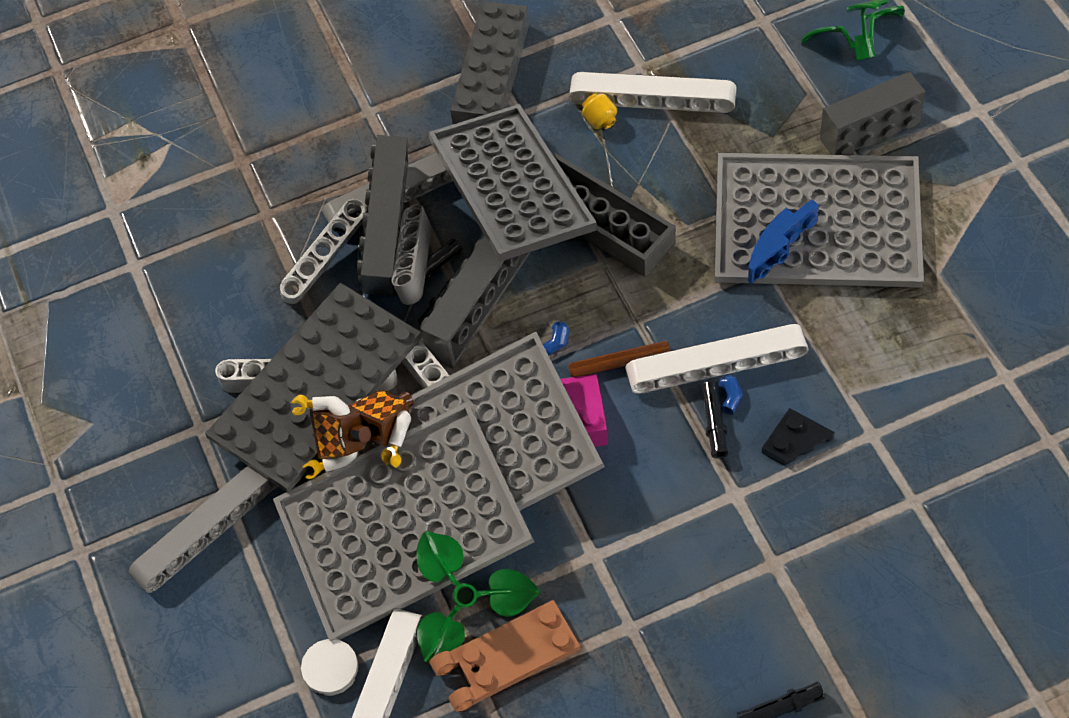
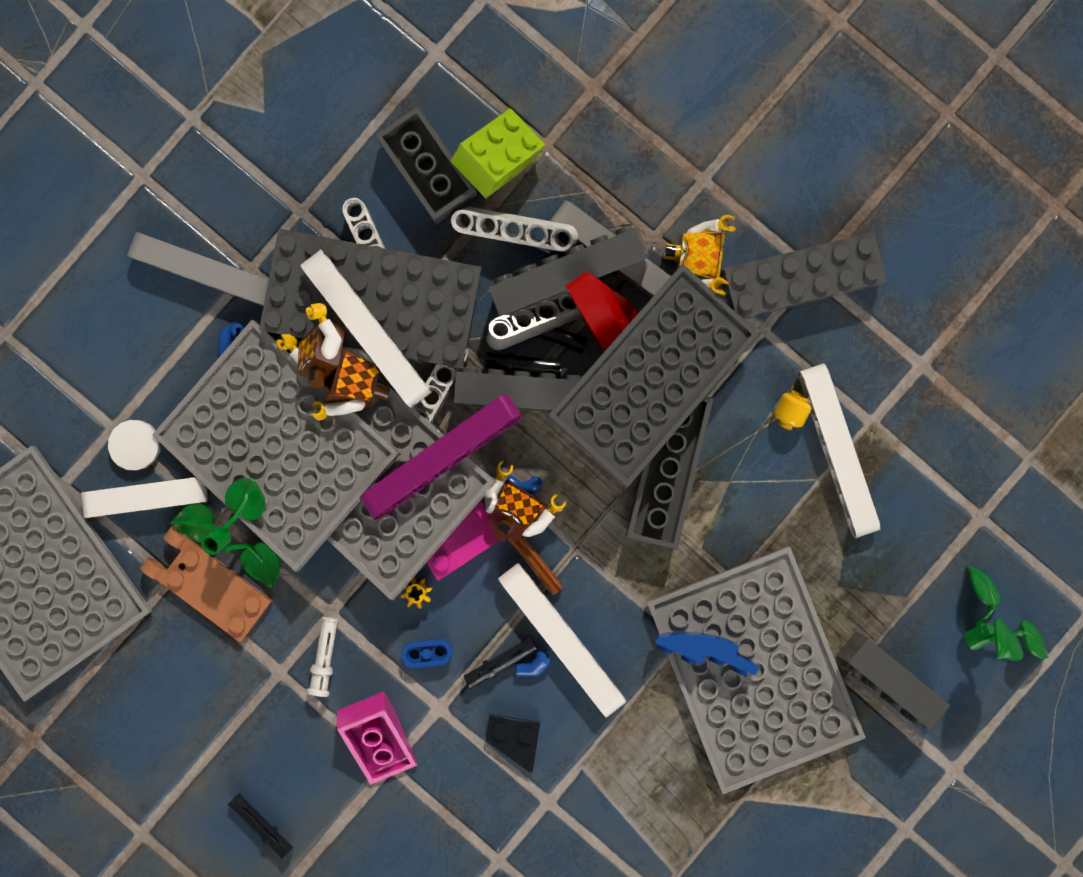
camera: 60 degrees right, 30 degrees up
(226, 300) = (426, 165): none -> dark grey brick
(250, 235) = (497, 152): none -> lime brick
(275, 533) = (228, 335): none -> blue arm
(346, 383) = (365, 328): none -> white beam
(421, 119) = (702, 251): none -> torso
(437, 206) = (601, 308): none -> red wedge
(490, 368) = (440, 456): none -> magenta beam
(579, 342) = (515, 511): none -> torso
(614, 469) = (413, 598): none -> yellow gear
(643, 578) = (321, 669): none -> white pin
(674, 480) = (427, 651): none -> blue plate
(737, 555) = (375, 737): none -> dark pink slope

